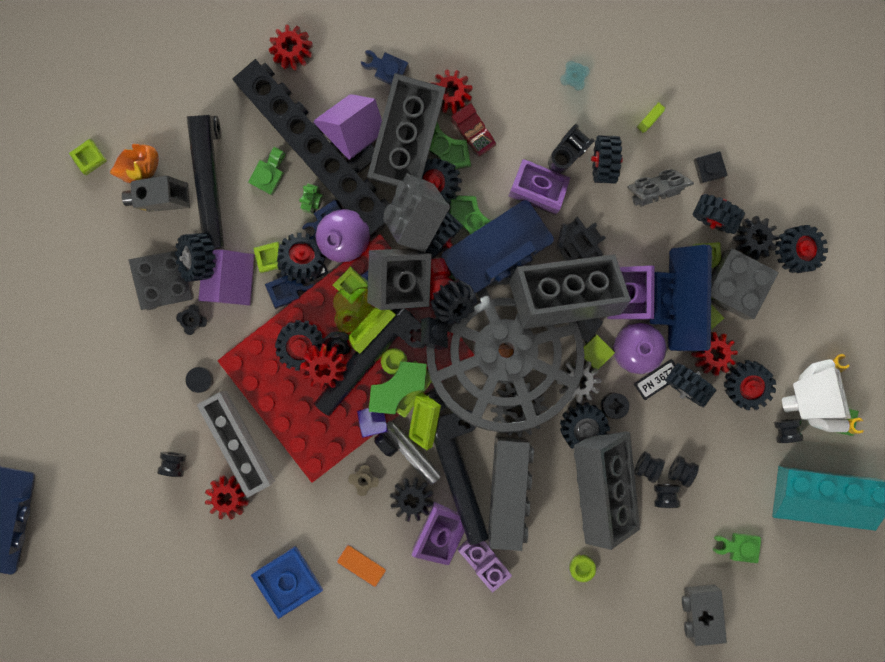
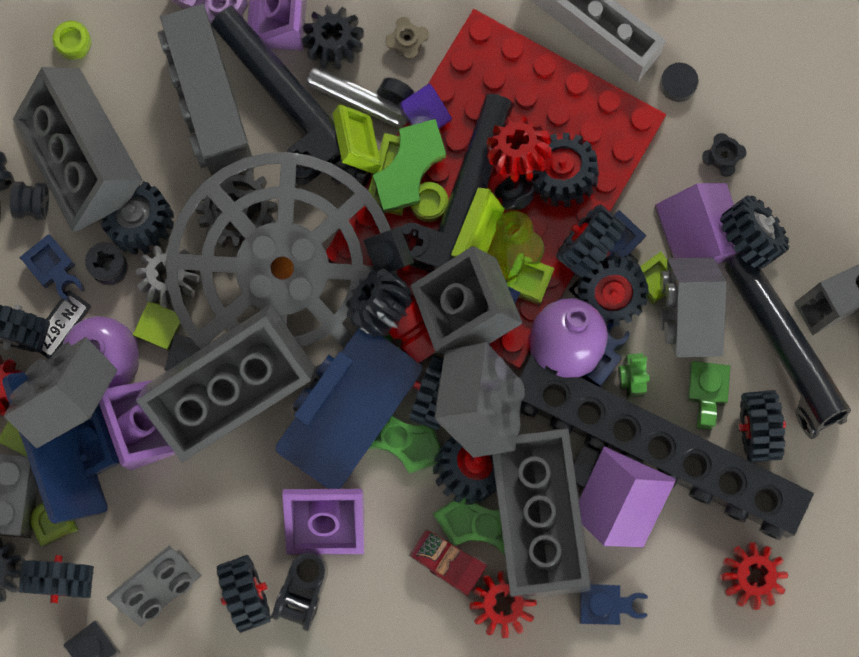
camera: 160 degrees right, 10 degrees down
(158, 281) = (791, 185): dark grey hinge -> none
(245, 133) = (762, 426): none -> black wheel
(255, 221) = (694, 307): none -> dark grey brick
(302, 289) = (590, 241): none -> black wheel
(572, 239) = (237, 474): black piece -> none
(650, 420) = (50, 265): none -> dark blue plate
(676, 324) = (60, 392): none -> dark grey brick

